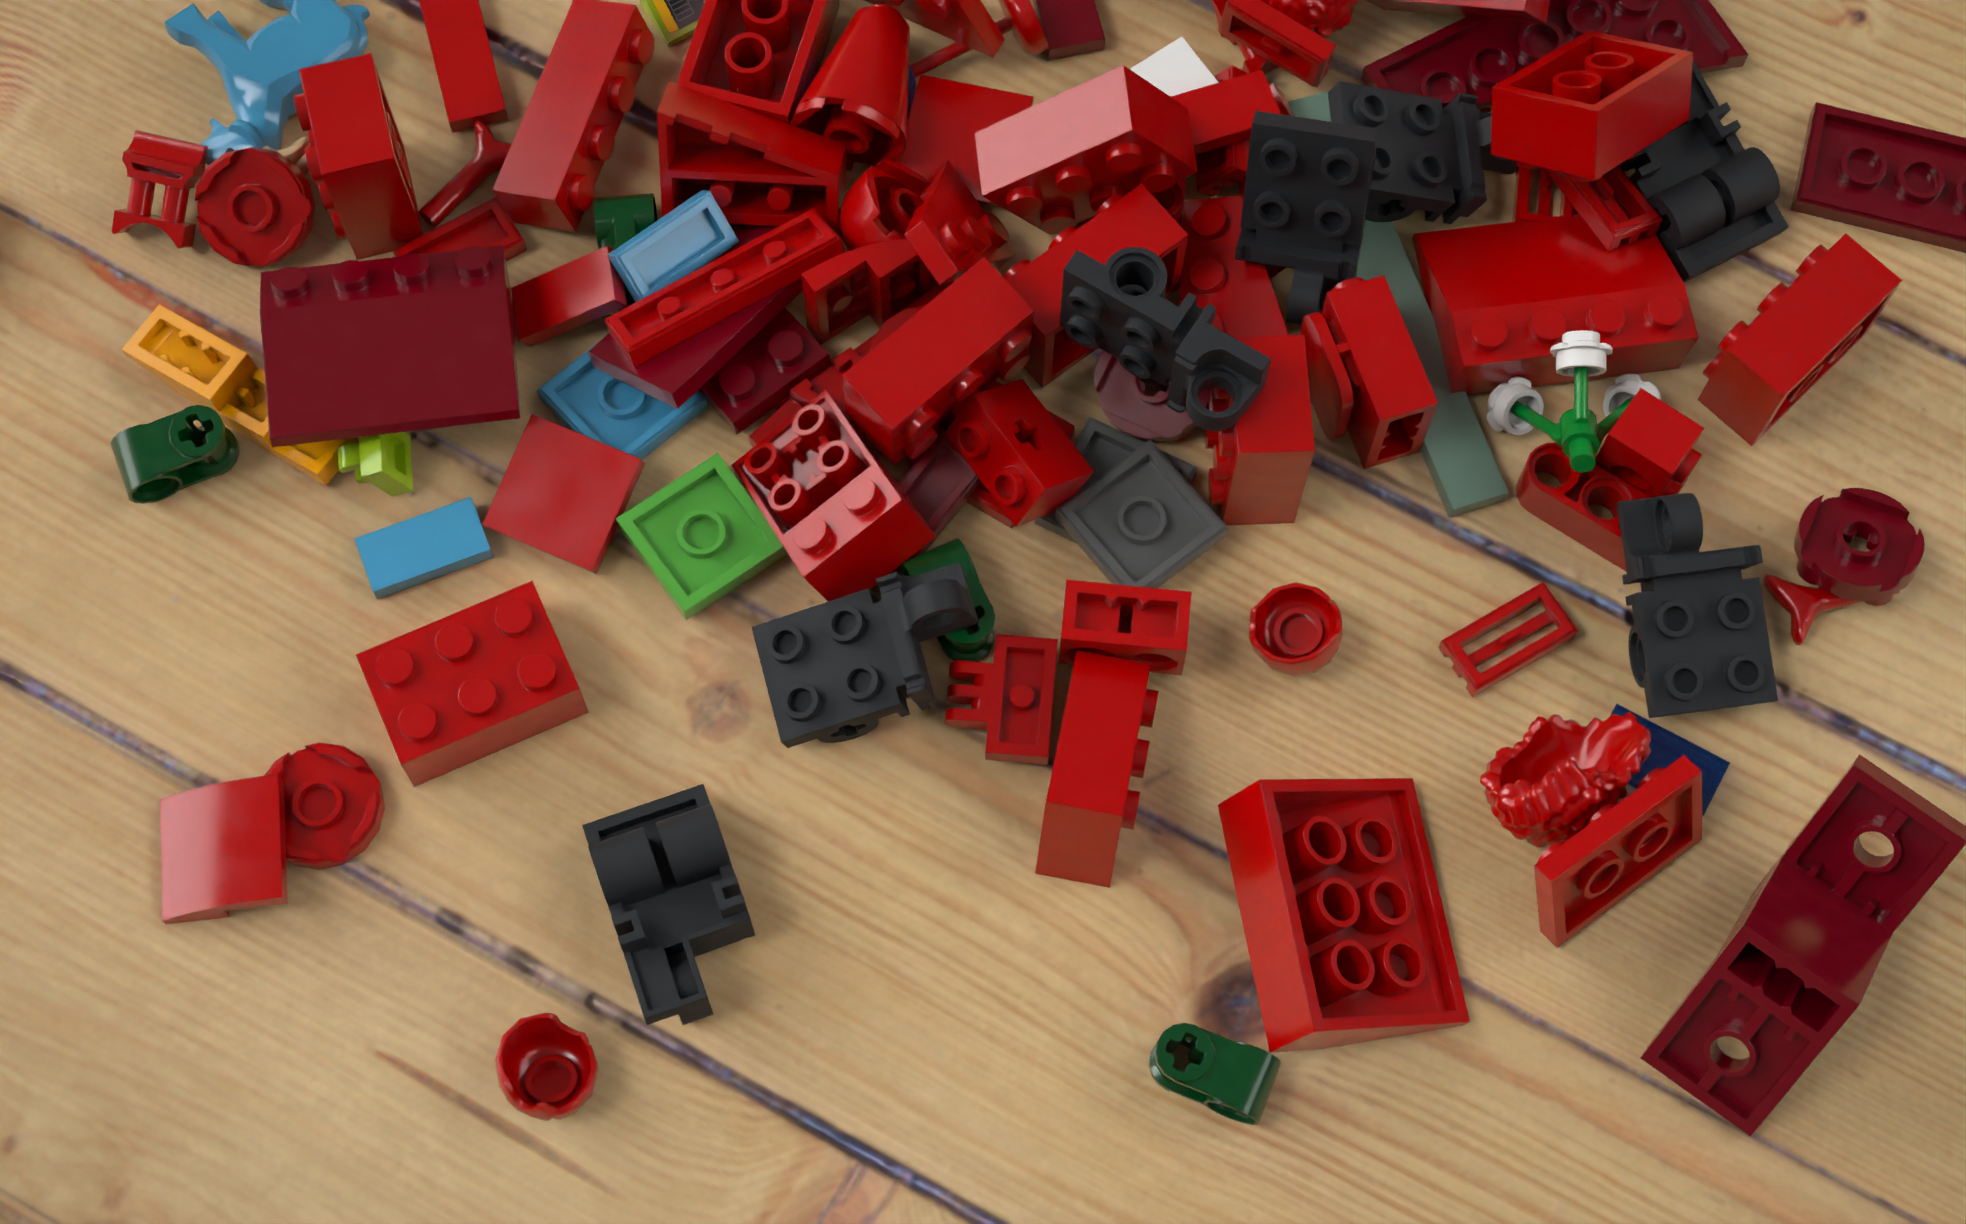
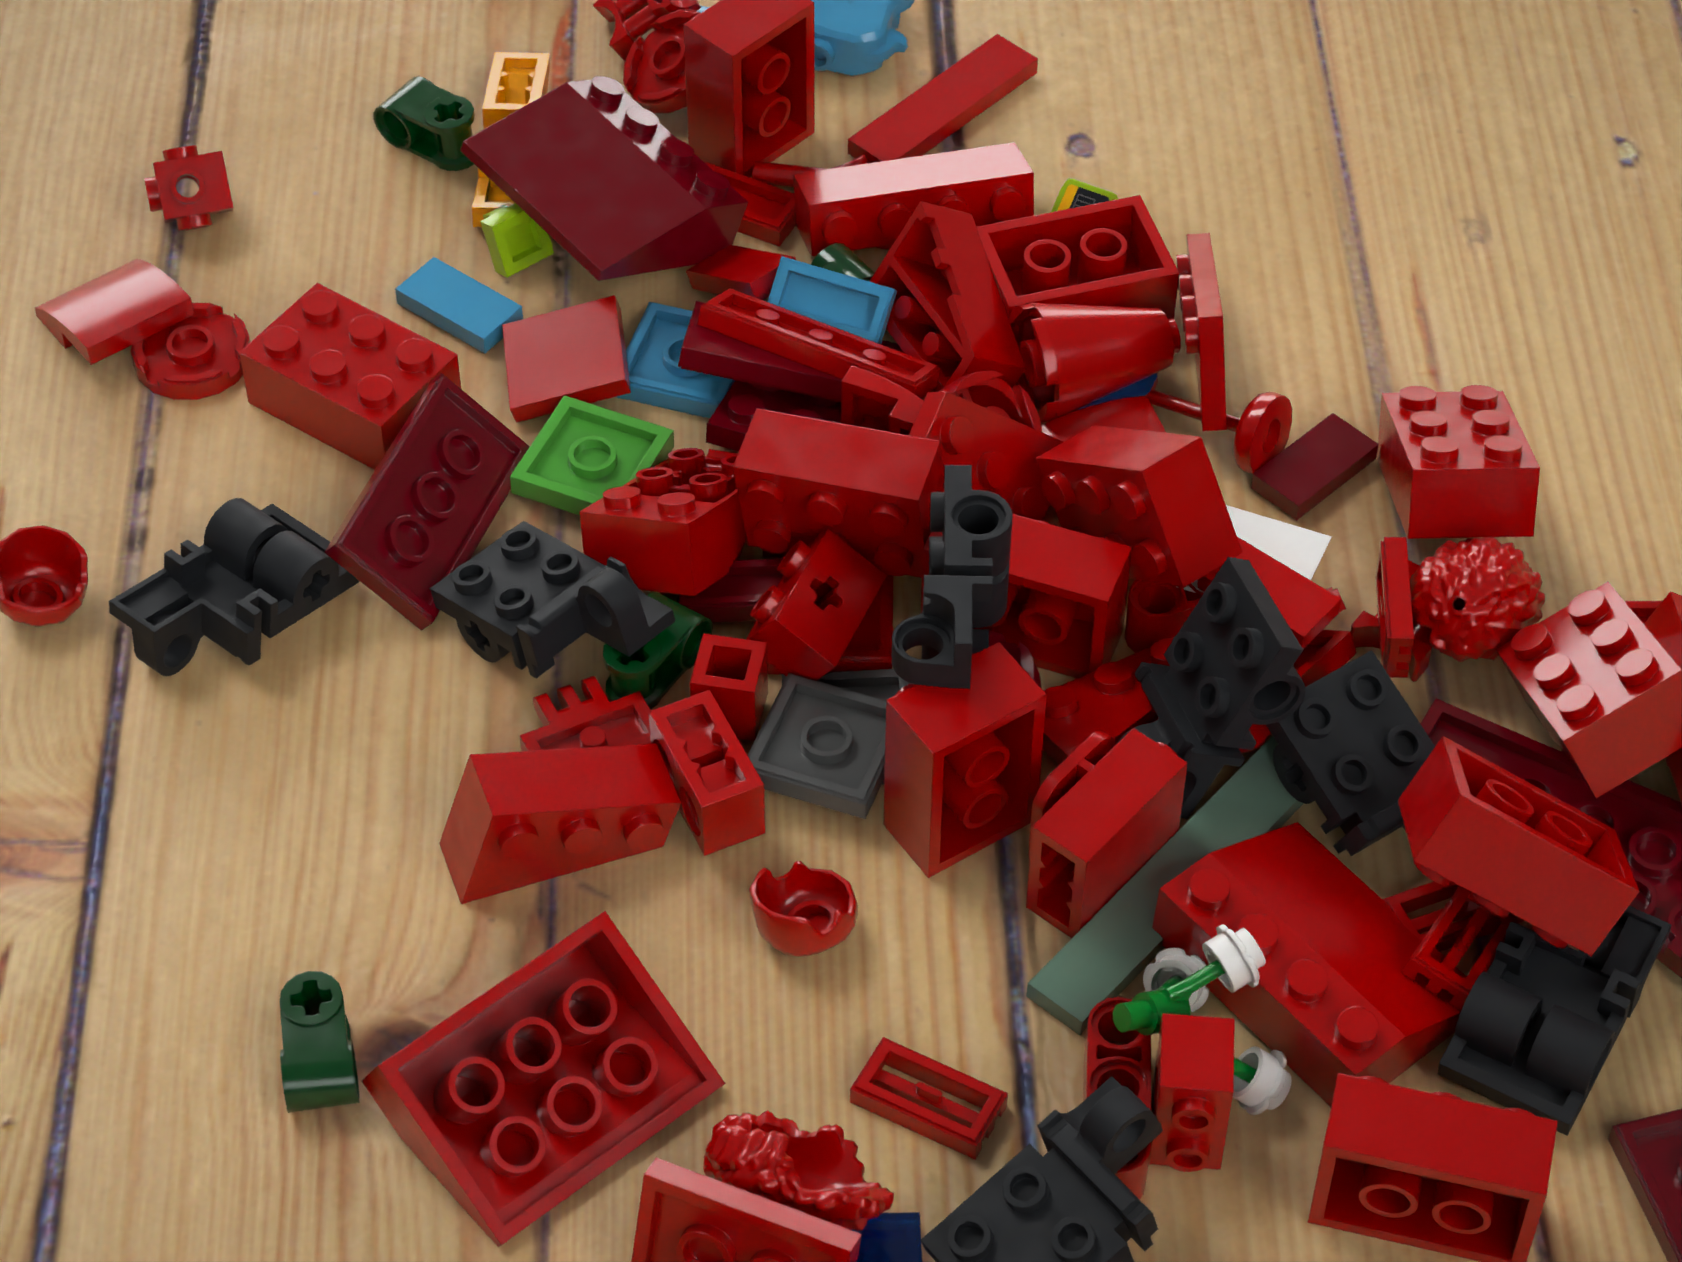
camera: 60 degrees right, 20 degrees down
(119, 705) = (206, 171): none -> red brick
(676, 690) = (428, 500): none -> dark red tile
(1043, 560) = (737, 678): none -> red brick

